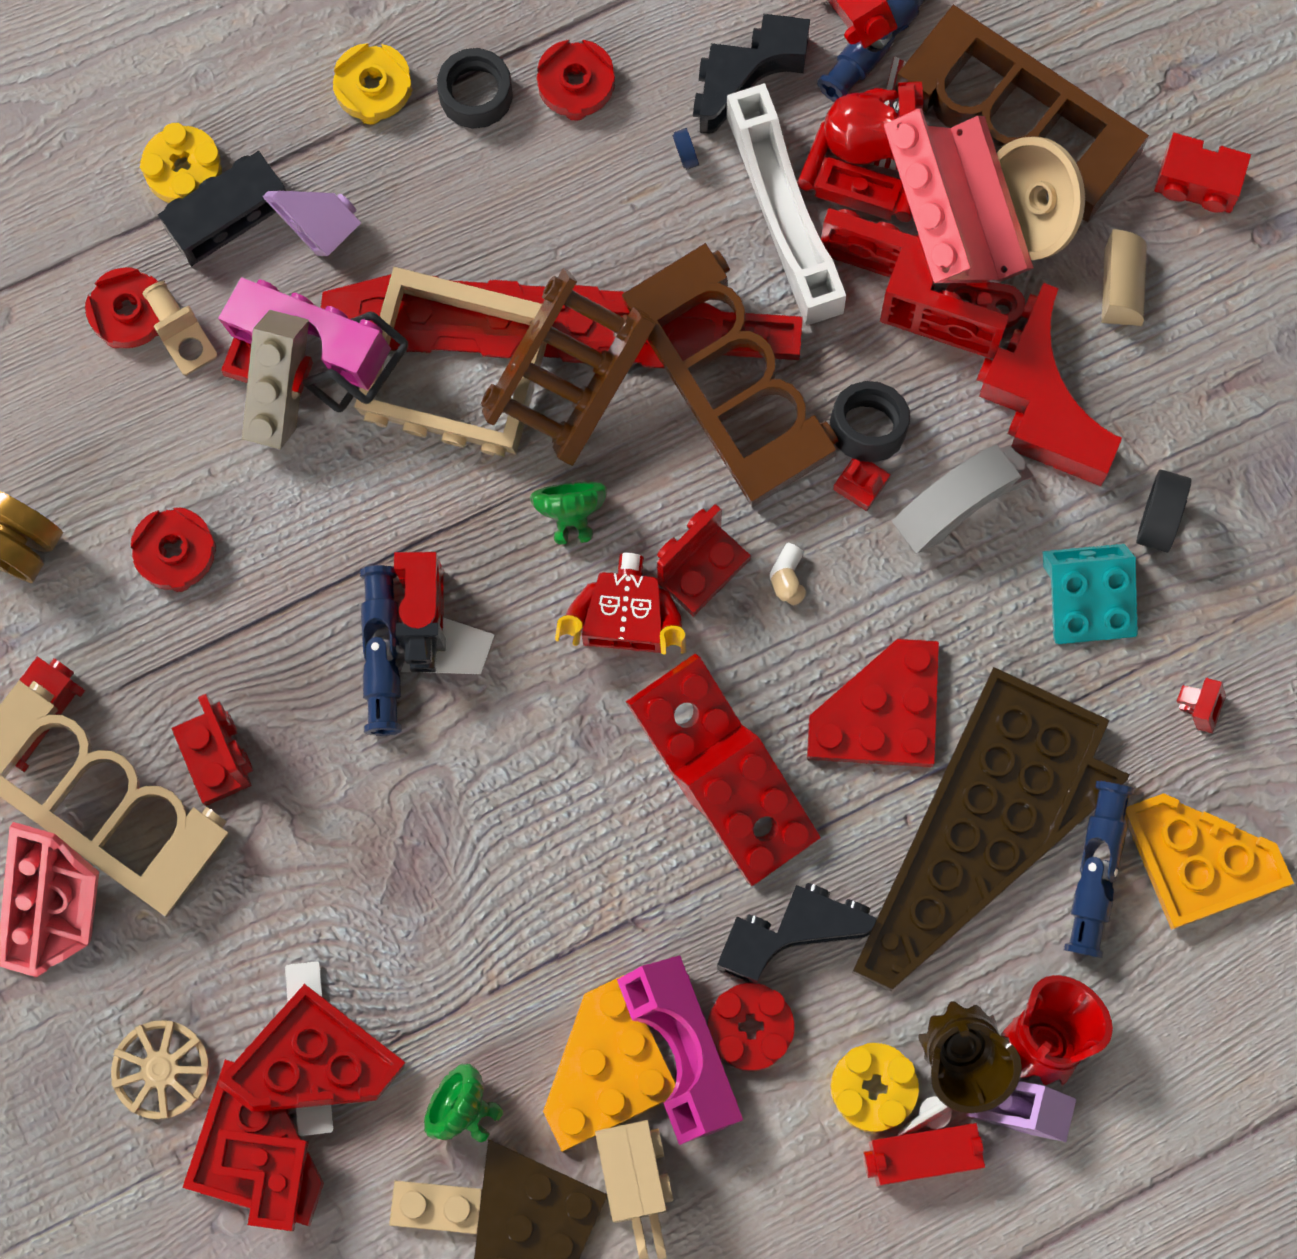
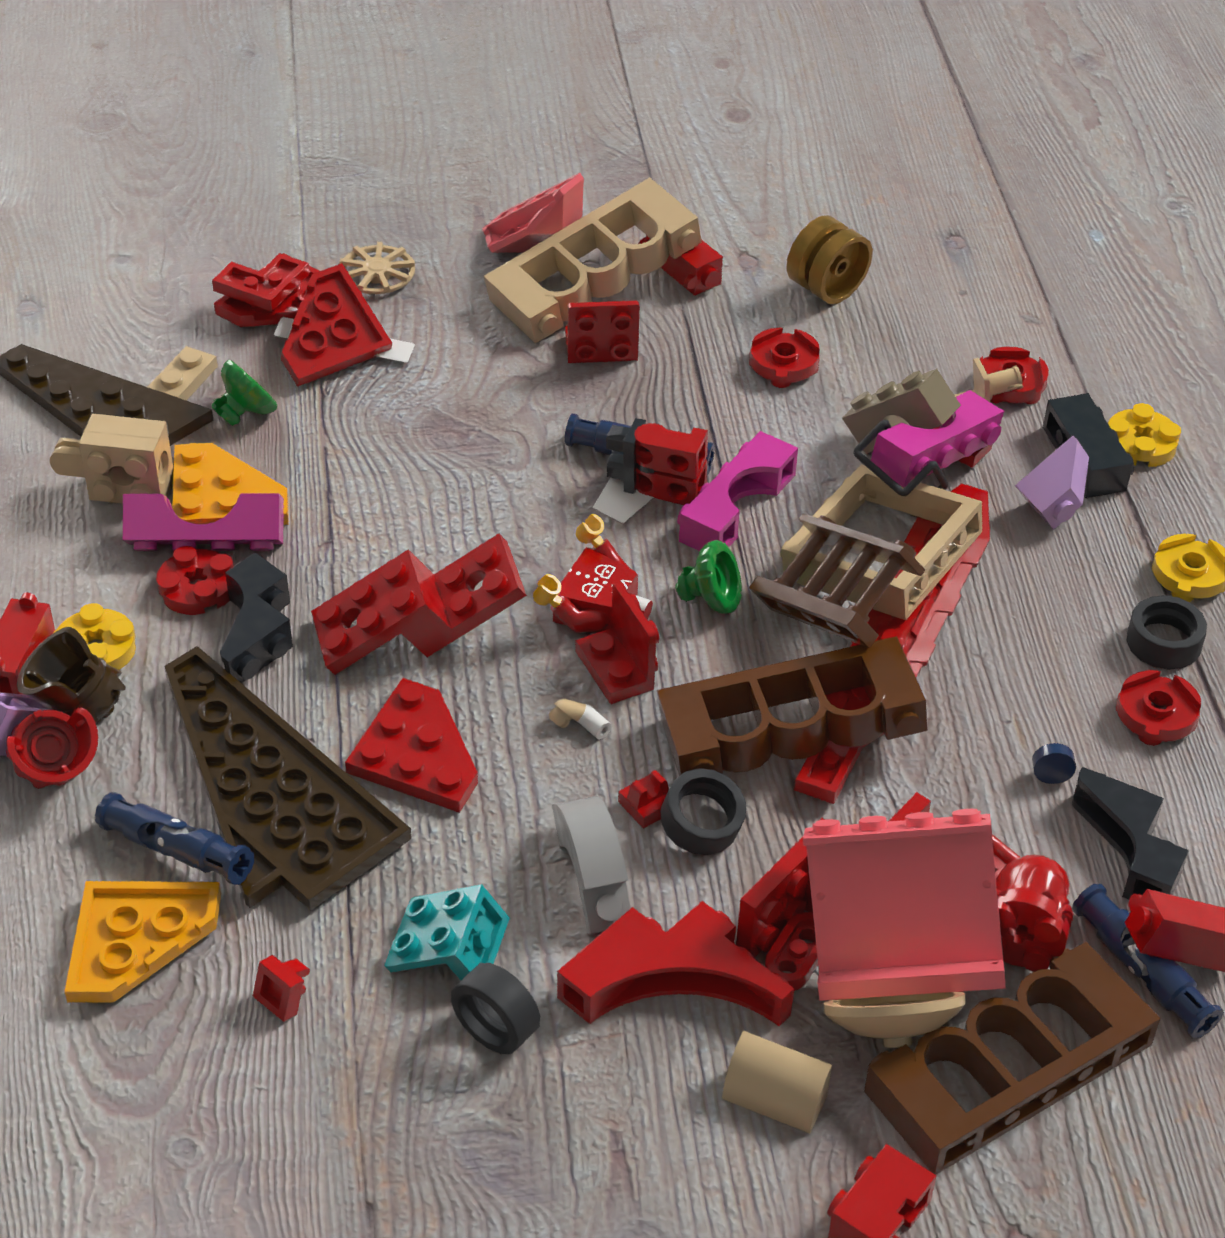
camera: 105 degrees right, 30 degrees down
(474, 538) = (759, 468): none -> dark pink arch
(800, 249) = (1046, 814): white arch -> none

